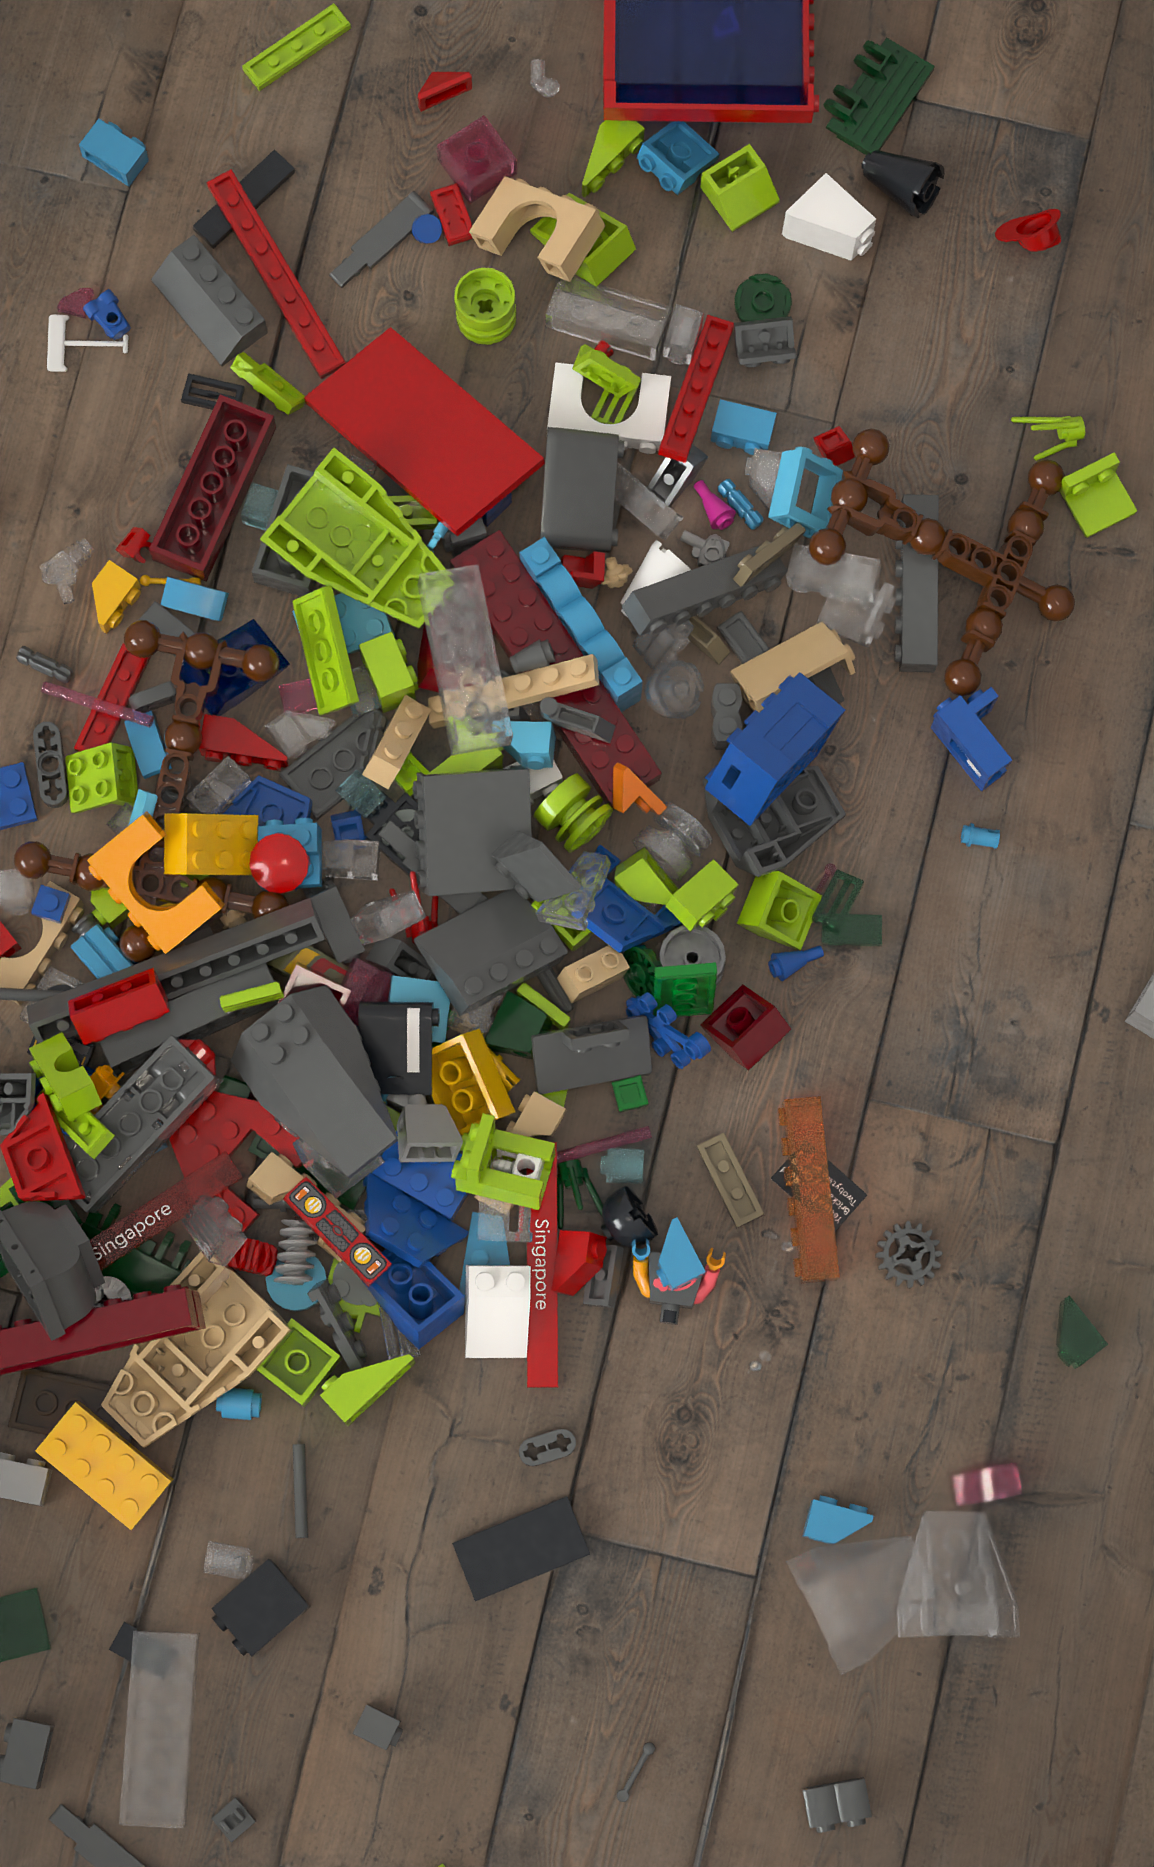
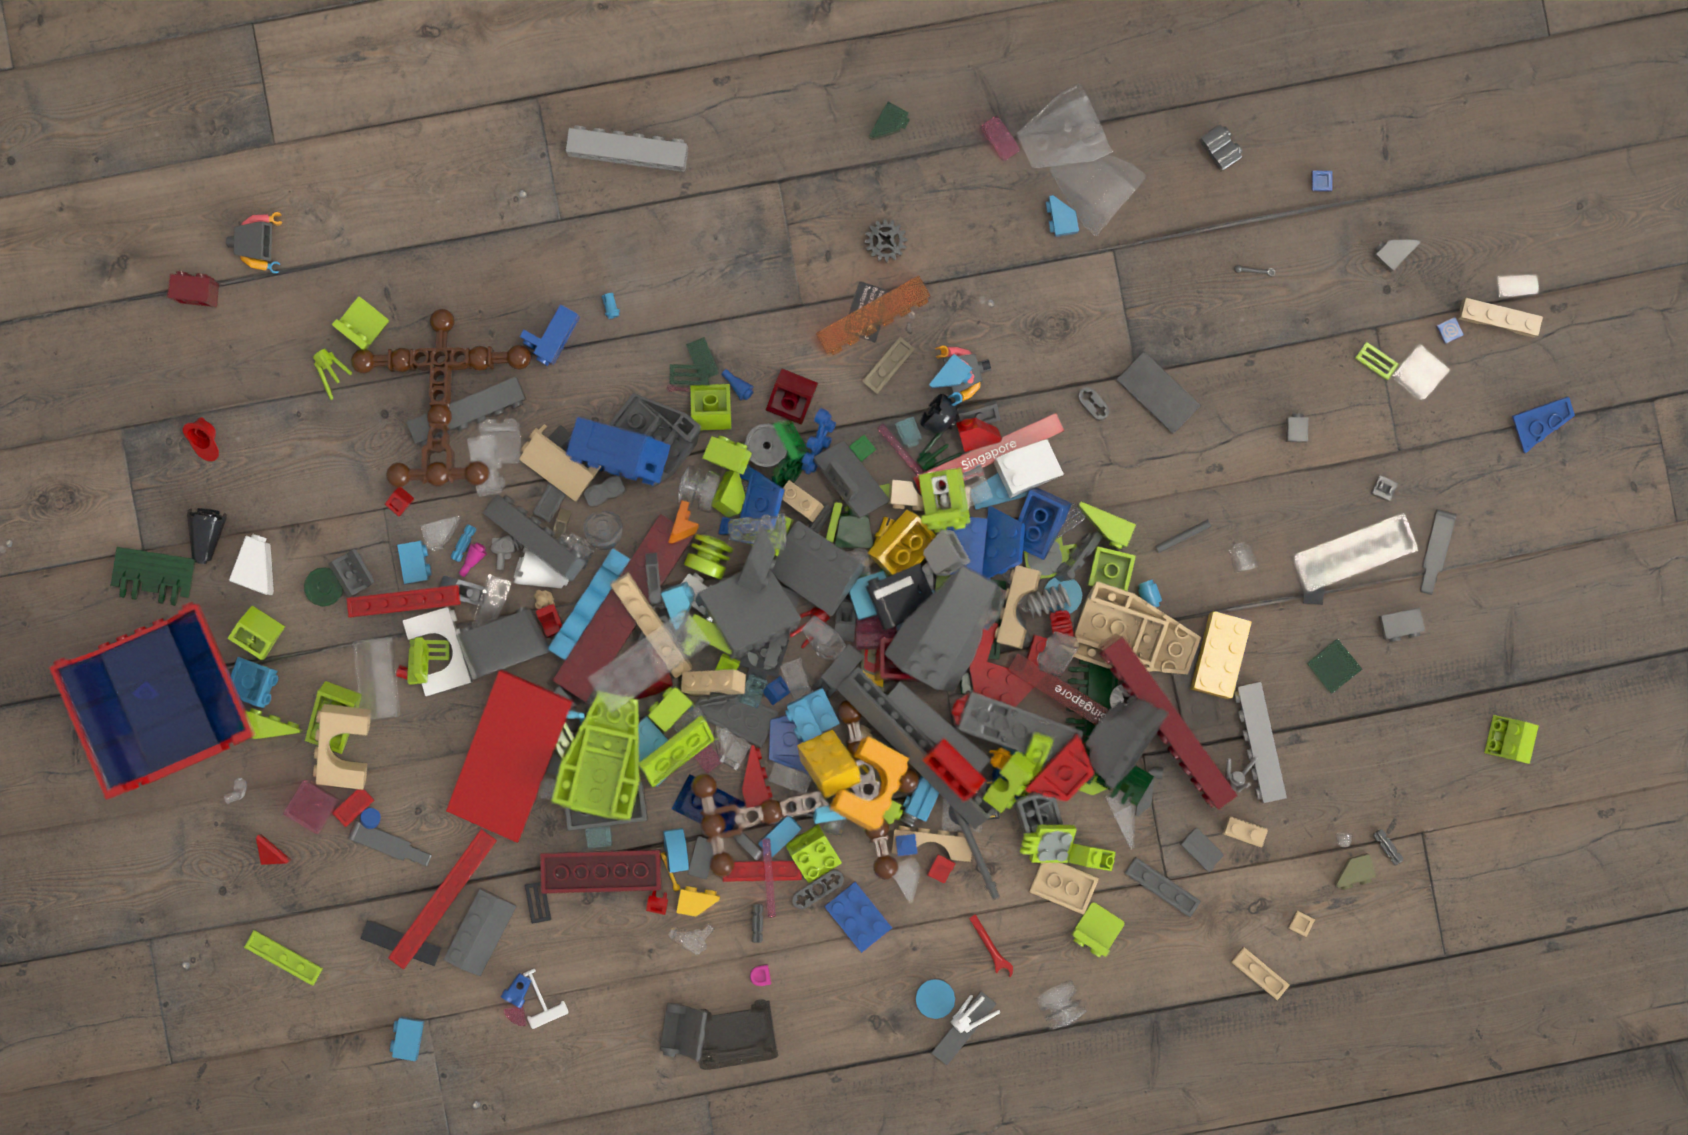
camera: 110 degrees left, 10 degrees up
(251, 997) = (912, 694): lime tile -> none
(259, 1608) = (1261, 527): black panel -> none
(268, 383) = (516, 869): lime hinge -> none
(279, 863) = (822, 717): red dish -> none
(337, 1231) = (1027, 580): tile -> none
(484, 292) = (398, 762): lime wheel -> none
(533, 656) = (625, 621): dark grey cone -> none
(683, 334) = (372, 625): clear slope -> none
(768, 553) = (494, 509): dark tan plate -> none
(787, 486) = (443, 515): medium azure window -> none

